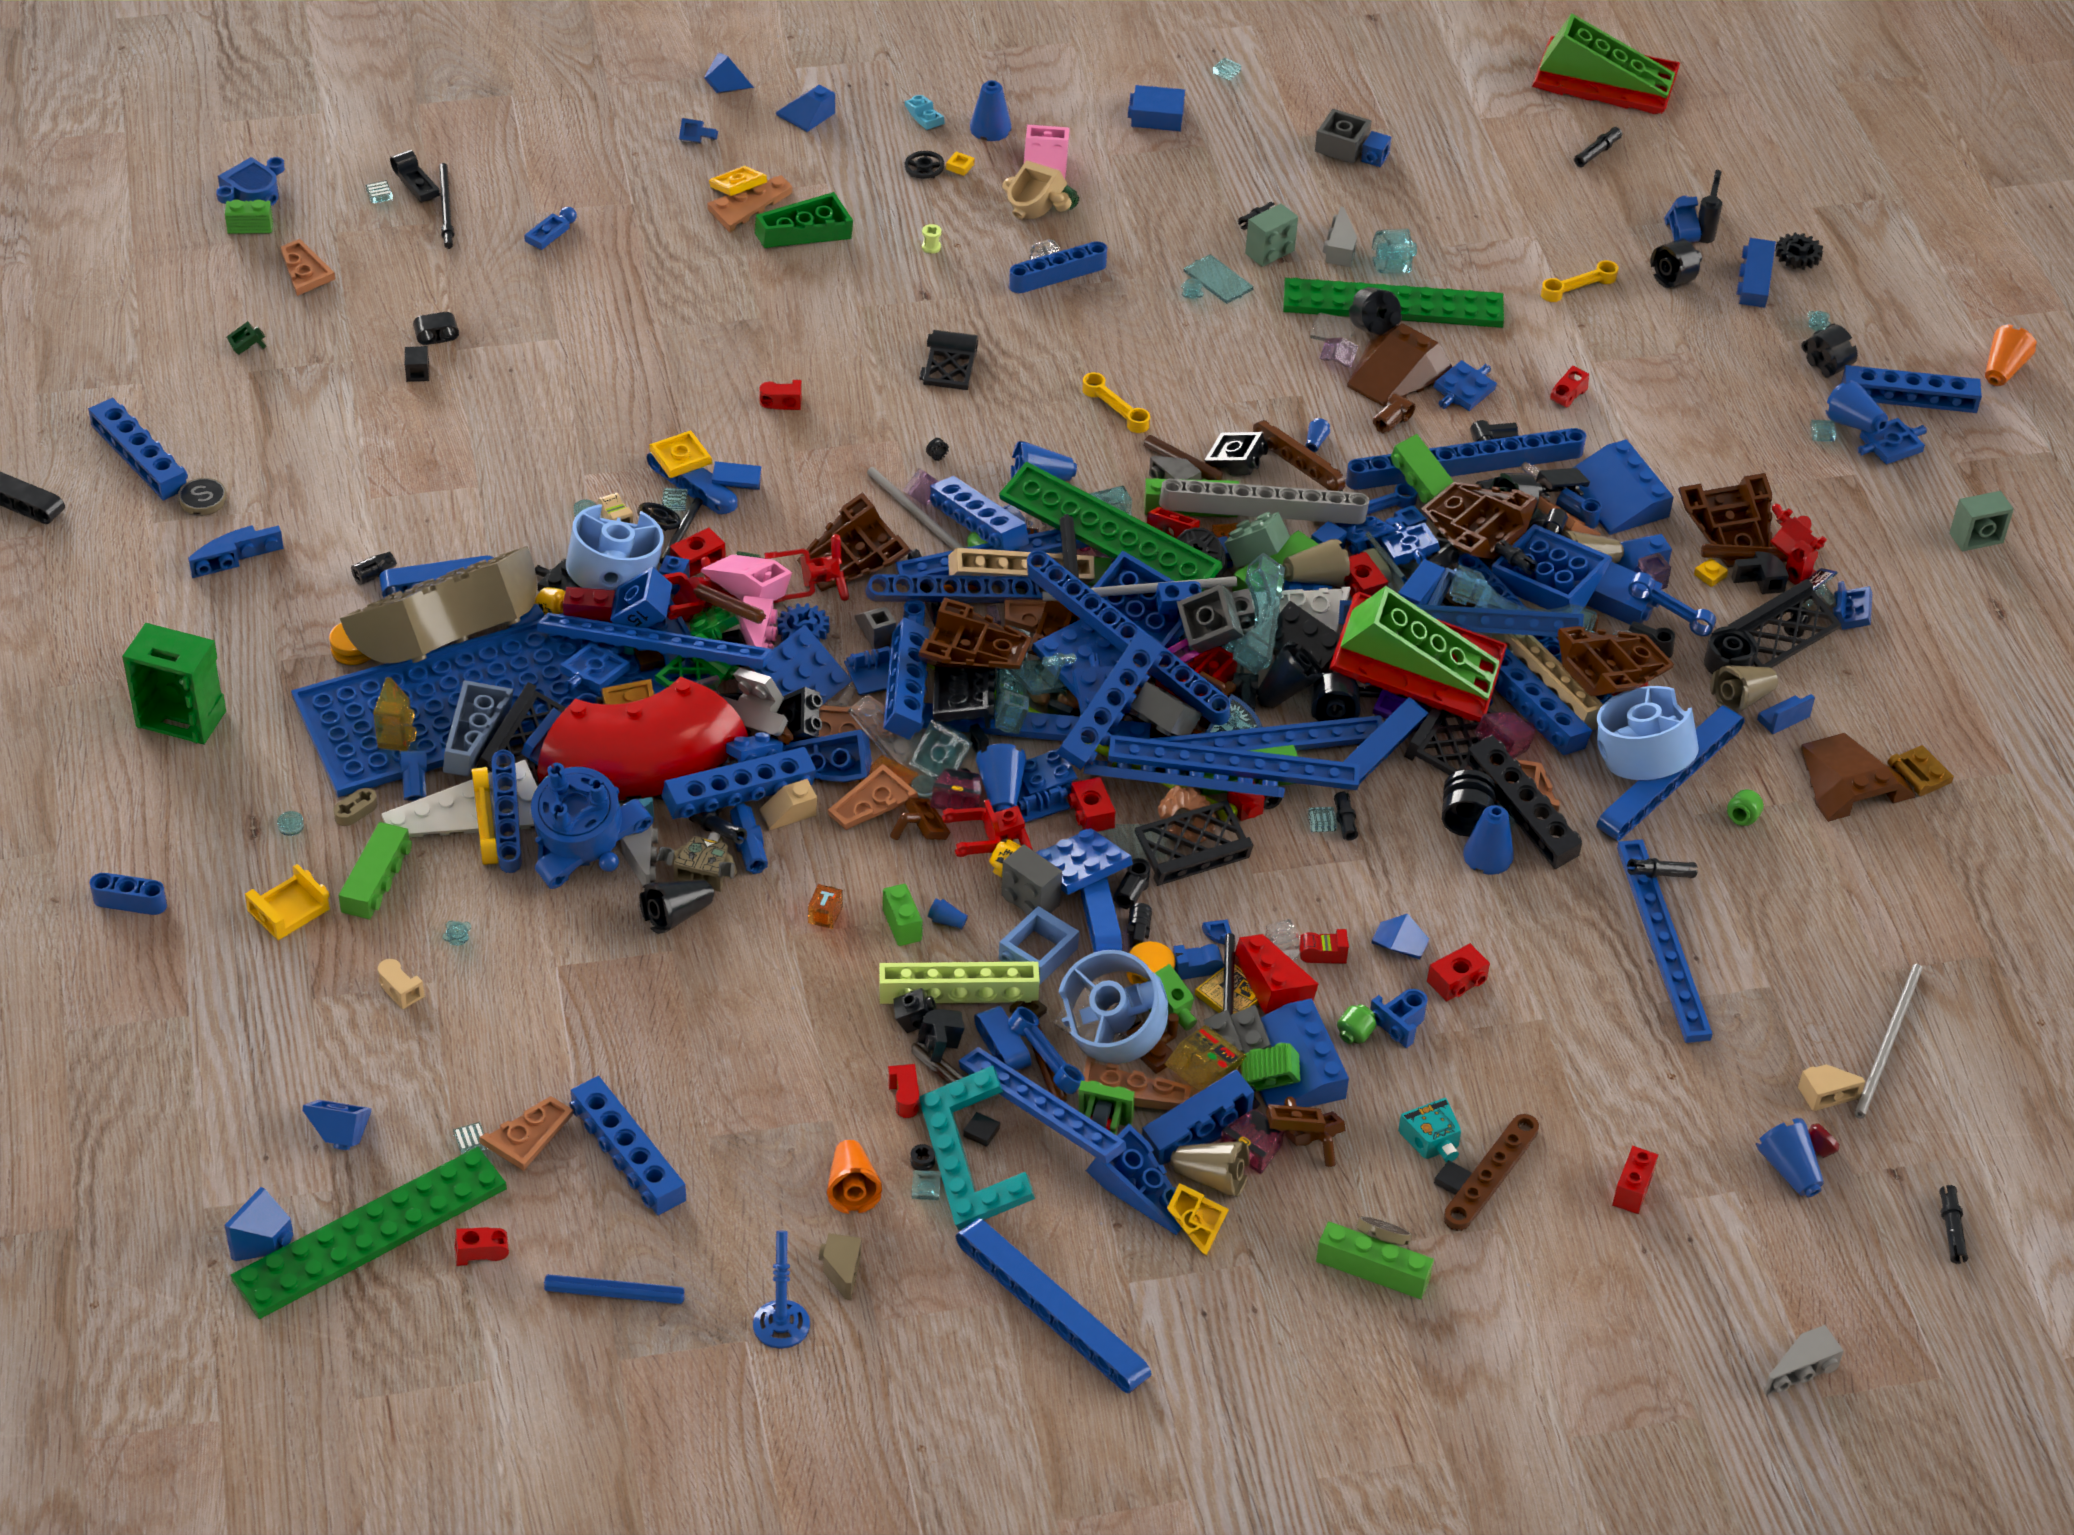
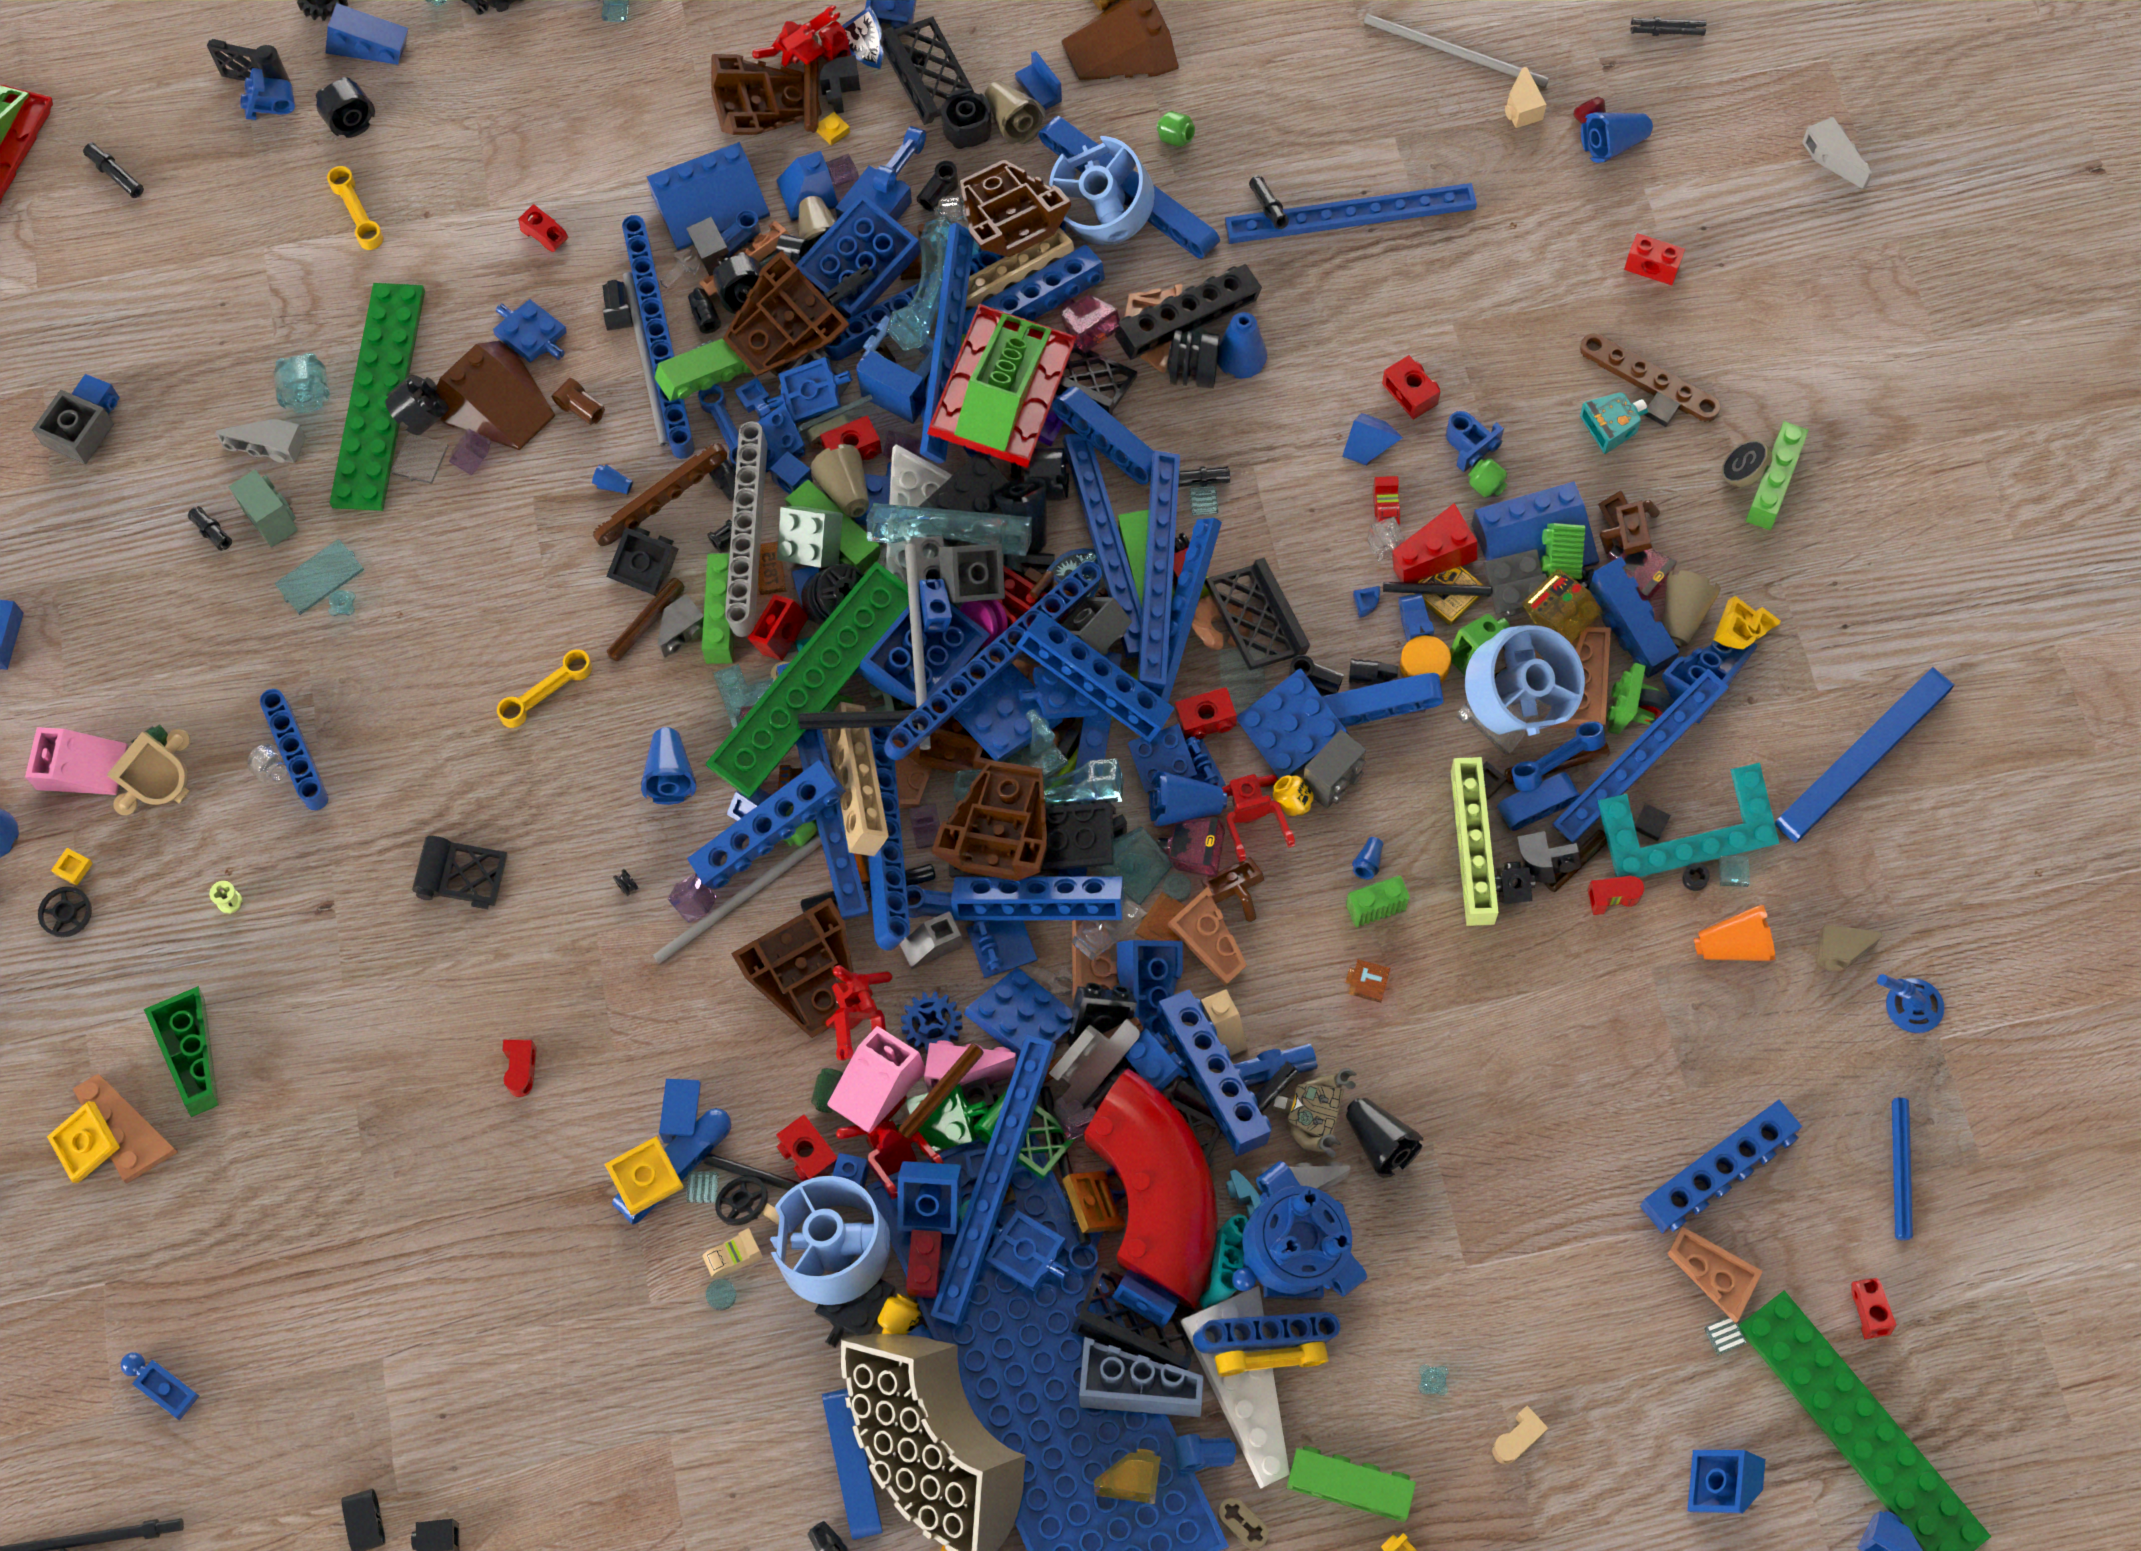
camera: 85 degrees left, 20 degrees up
(1051, 928) = (1410, 796): medium blue window -> none

